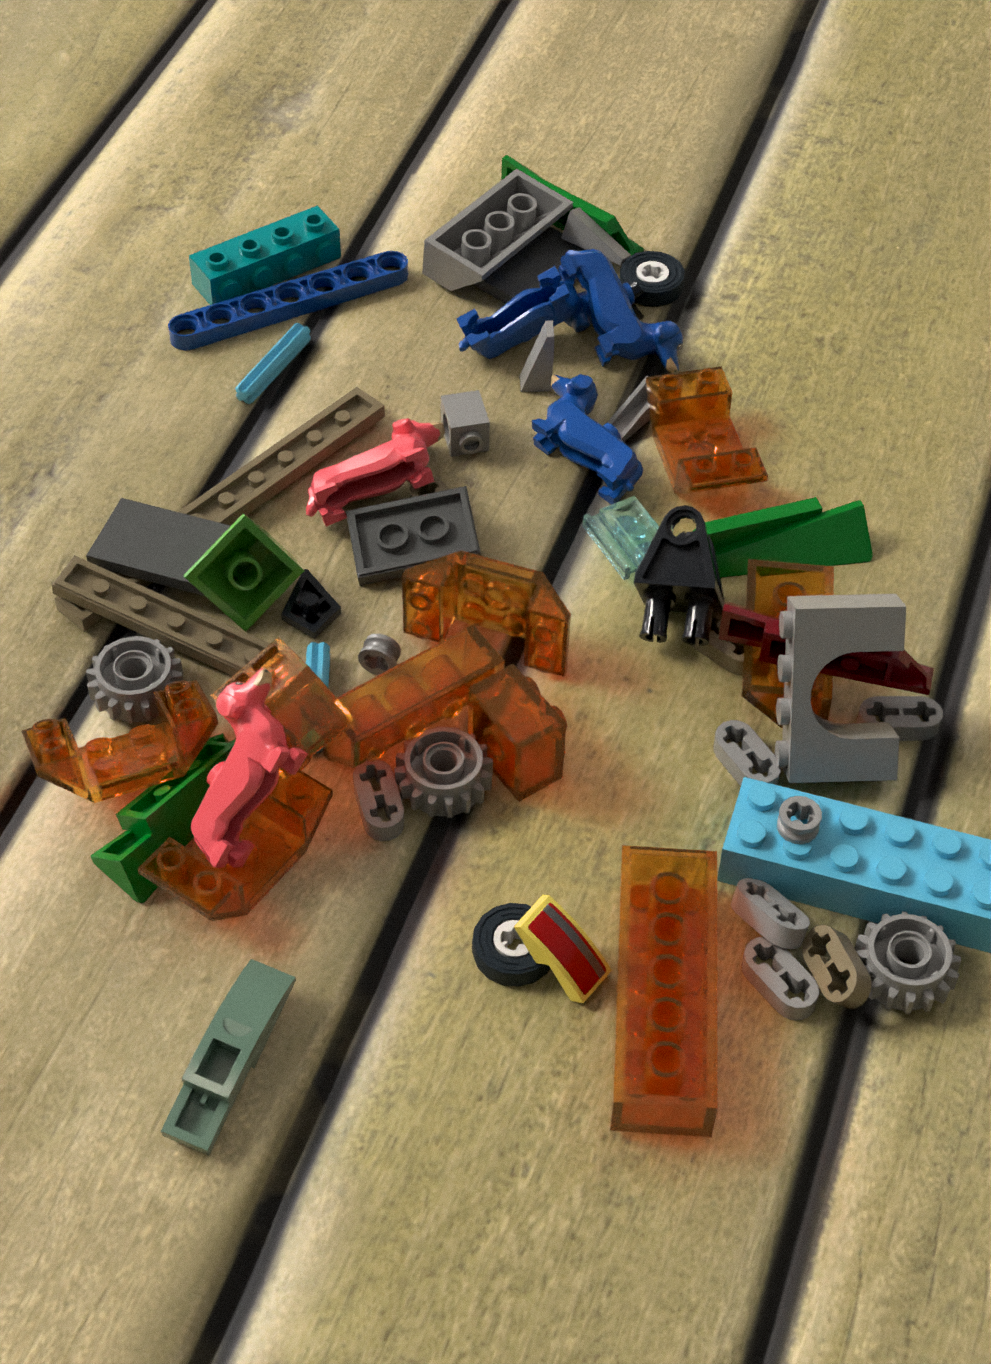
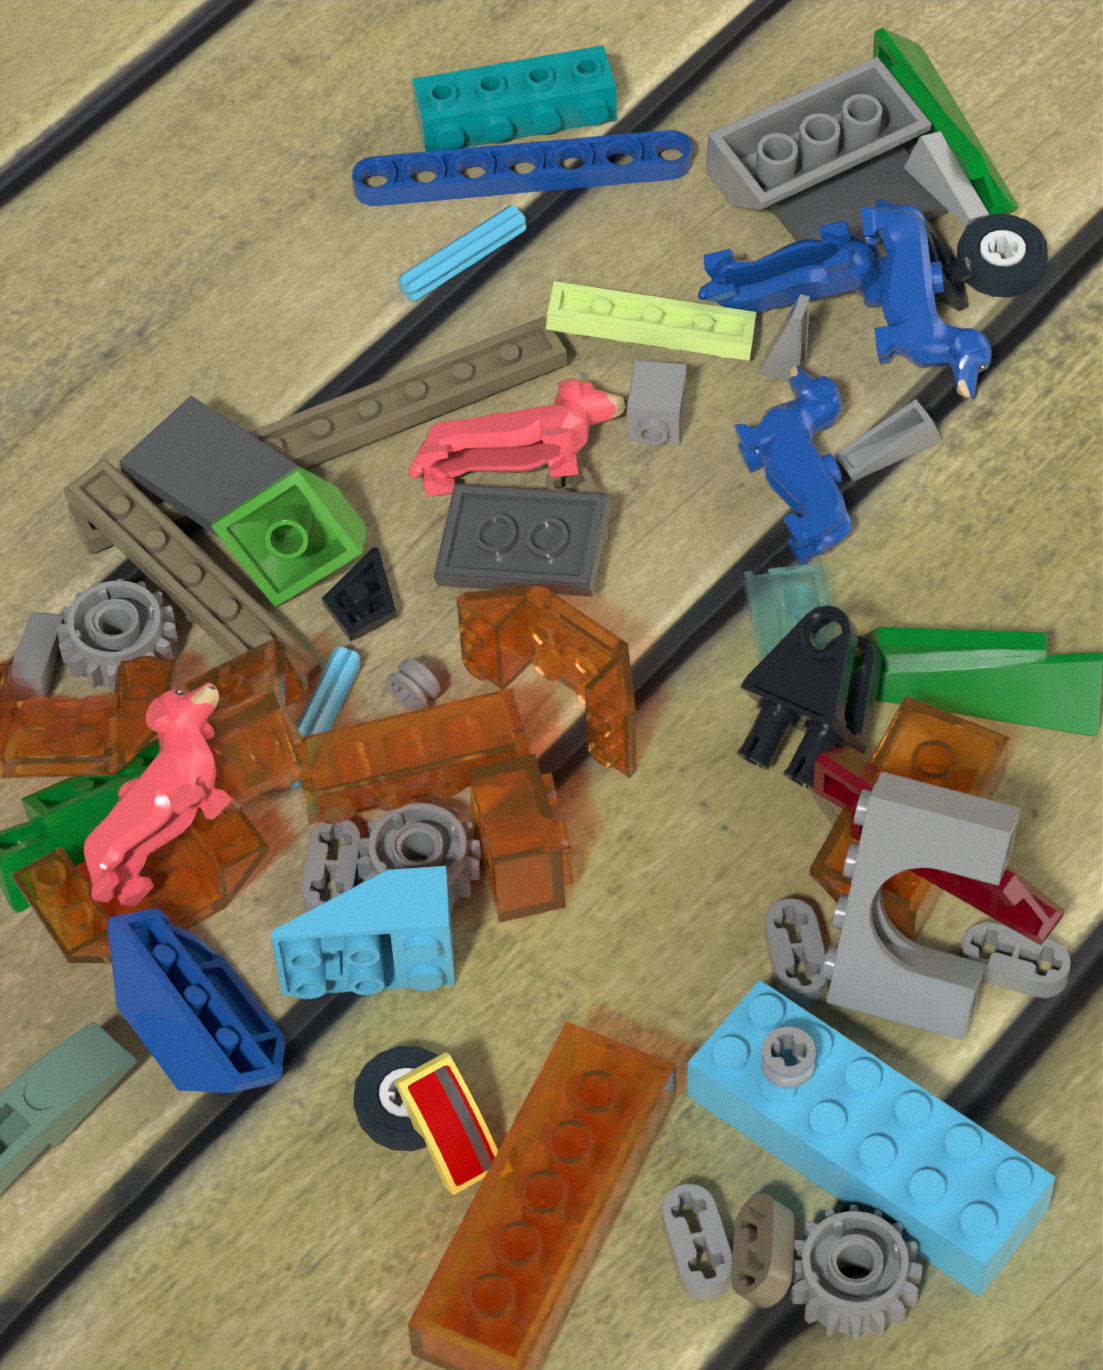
camera: 25 degrees right, 5 degrees up
(76, 710) = (36, 657): none -> light grey piece
(321, 929) = (191, 1007): none -> blue wedge
(434, 372) = (651, 320): none -> yellowish green plate
(445, 832) = (371, 938): none -> medium azure slope
(697, 434) = (948, 498): clear orange slope -> none
(770, 913) = (708, 1159): light grey beam -> none

